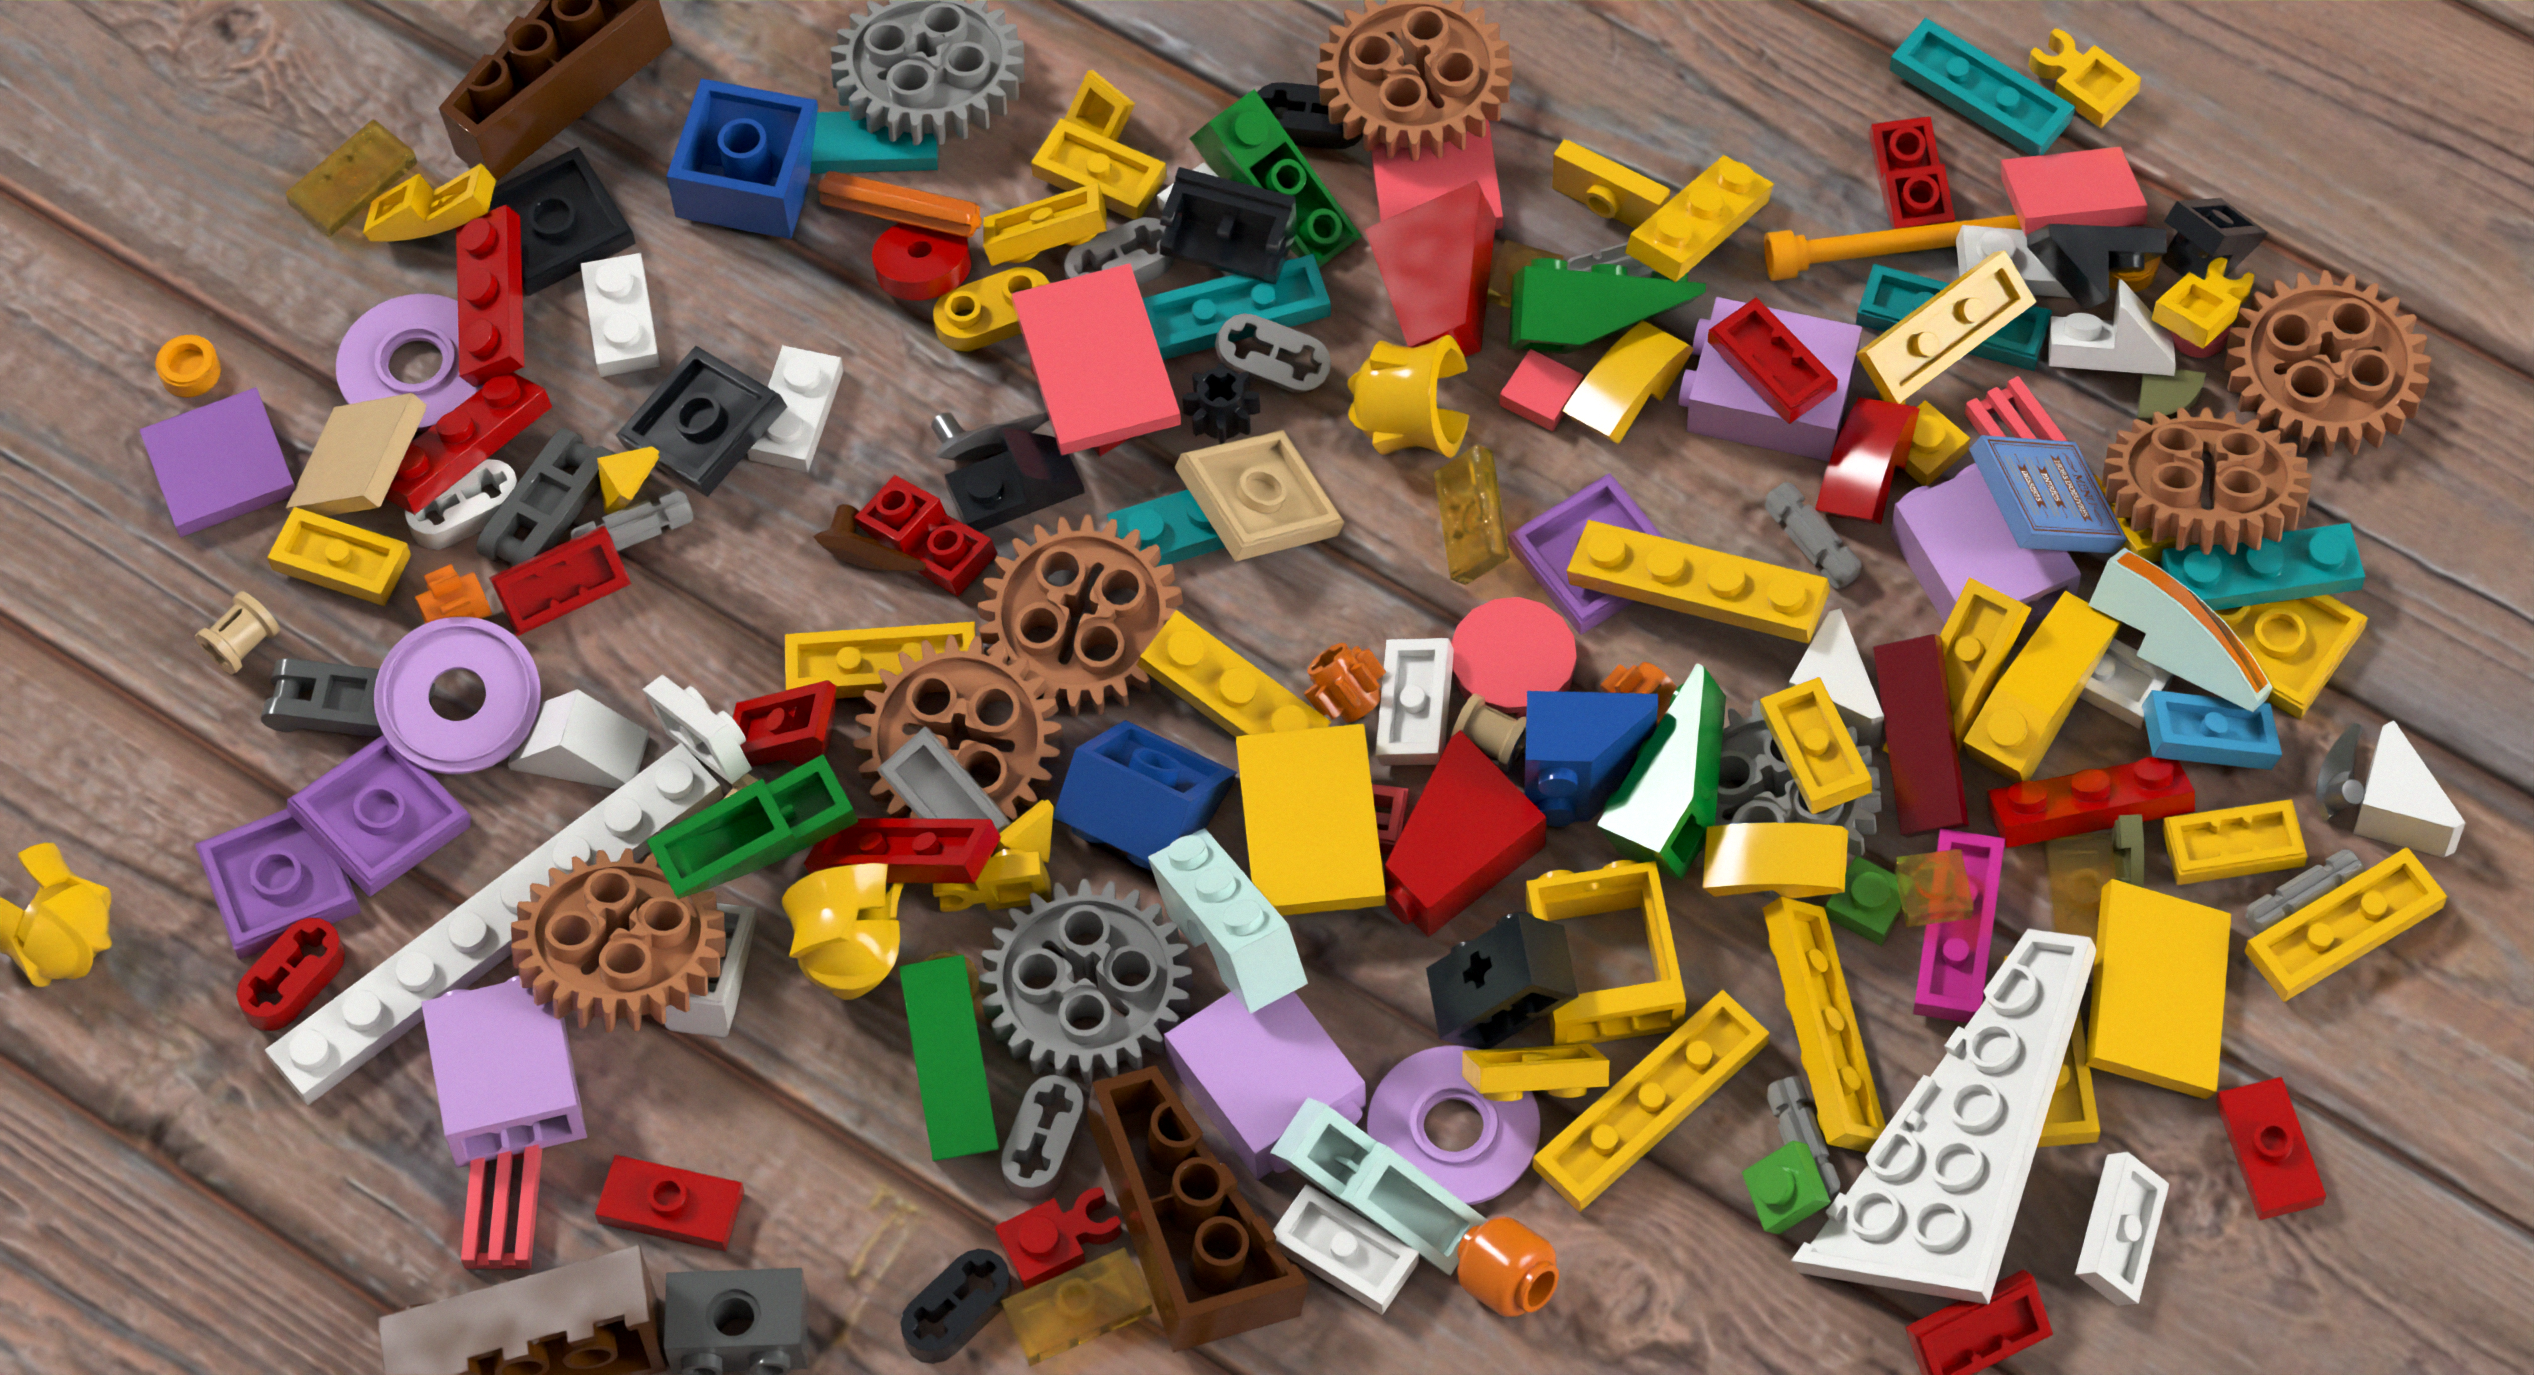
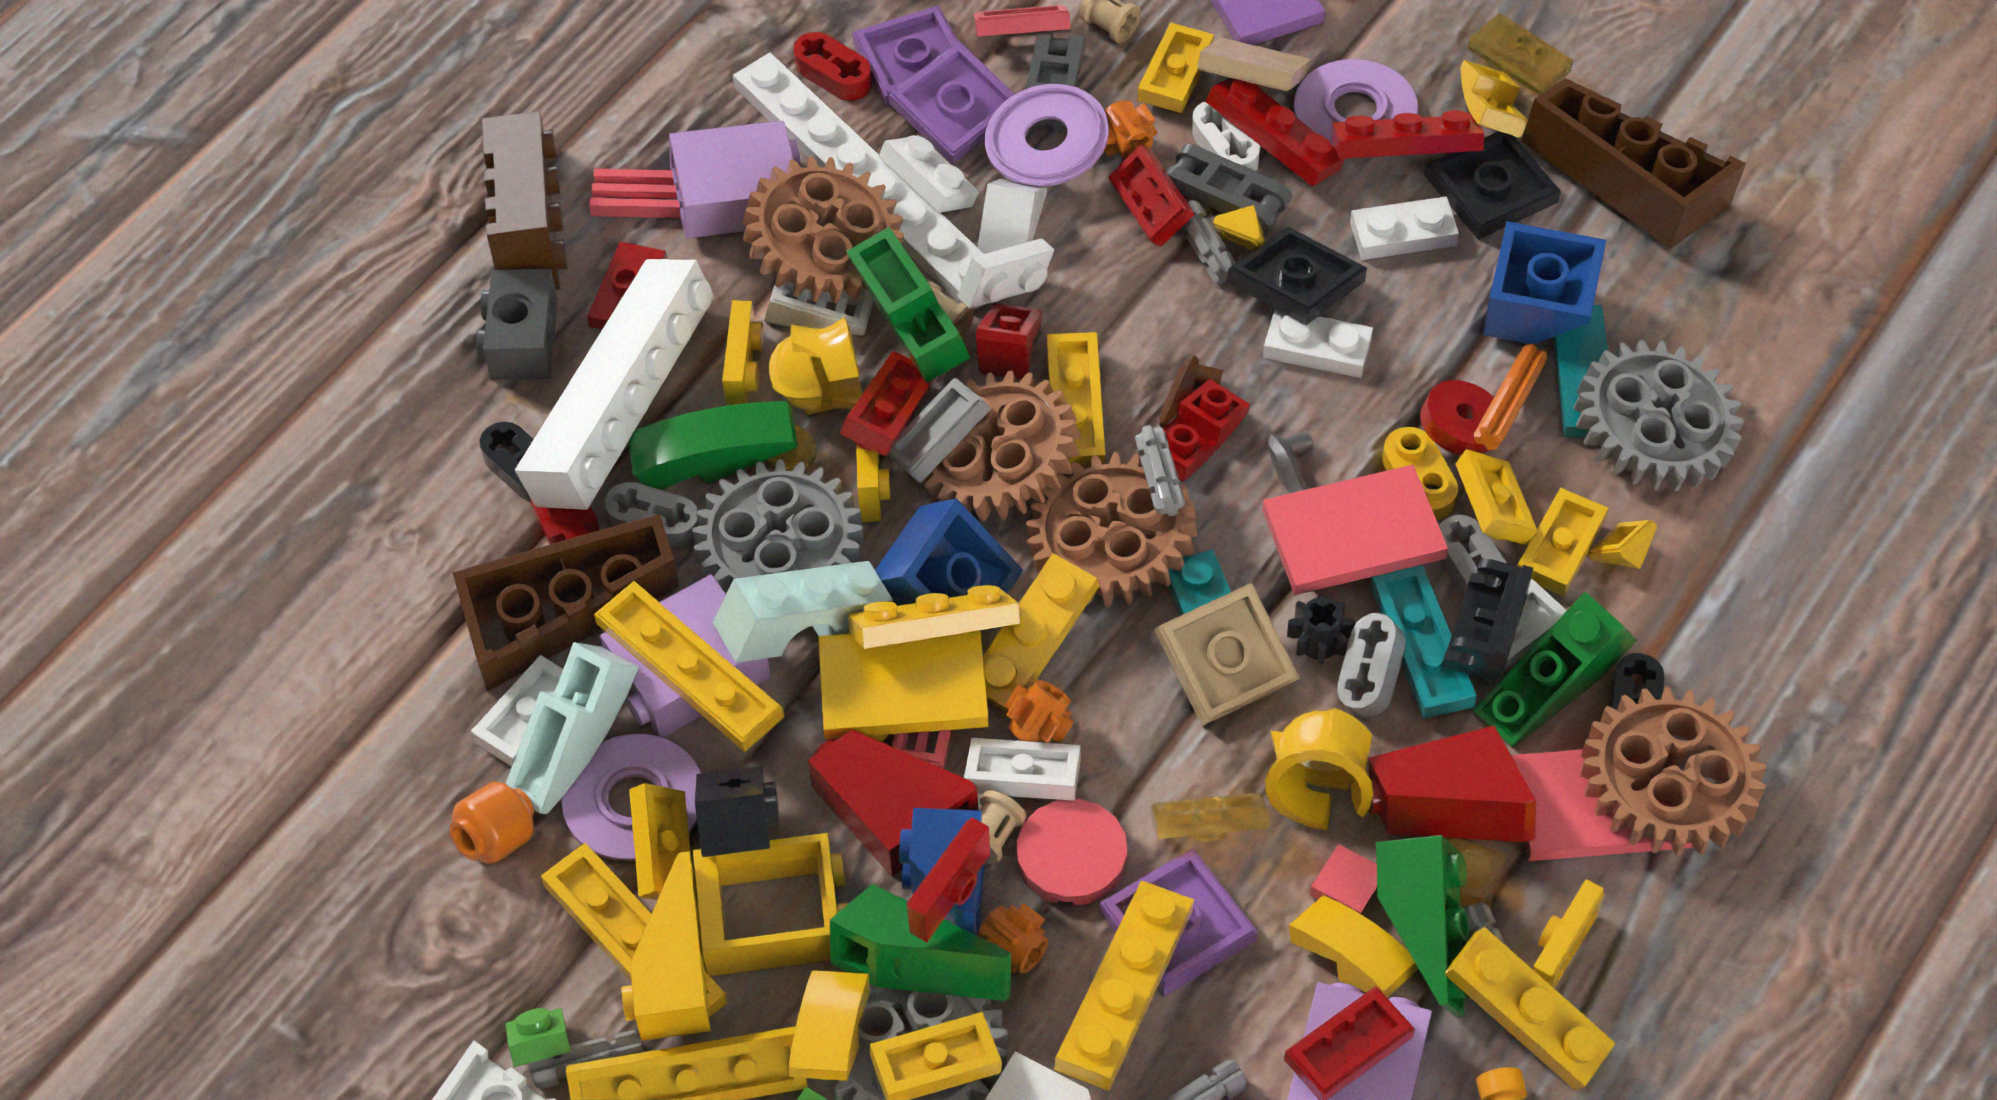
camera: 90 degrees right, 5 degrees down
(240, 737) = (1022, 20): none -> coral tile
(501, 840) = (929, 173): none -> white plate
(788, 1045) = (743, 338): none -> yellow plate
(861, 1170) = (615, 384): none -> white brick
(1014, 483) = (1243, 483): black slope -> none
(1023, 544) = (1159, 470): none -> light grey axle
(1030, 831) = (906, 493): yellow slope -> none
(1077, 1306) = (504, 524): clear yellow plate -> none
(1238, 777) = (933, 617): none -> yellow plate
(1304, 1042) = (689, 666): none -> yellow tile
(1635, 702) = (949, 880): none -> red plate
(1704, 1029) = (668, 963): none -> yellow slope

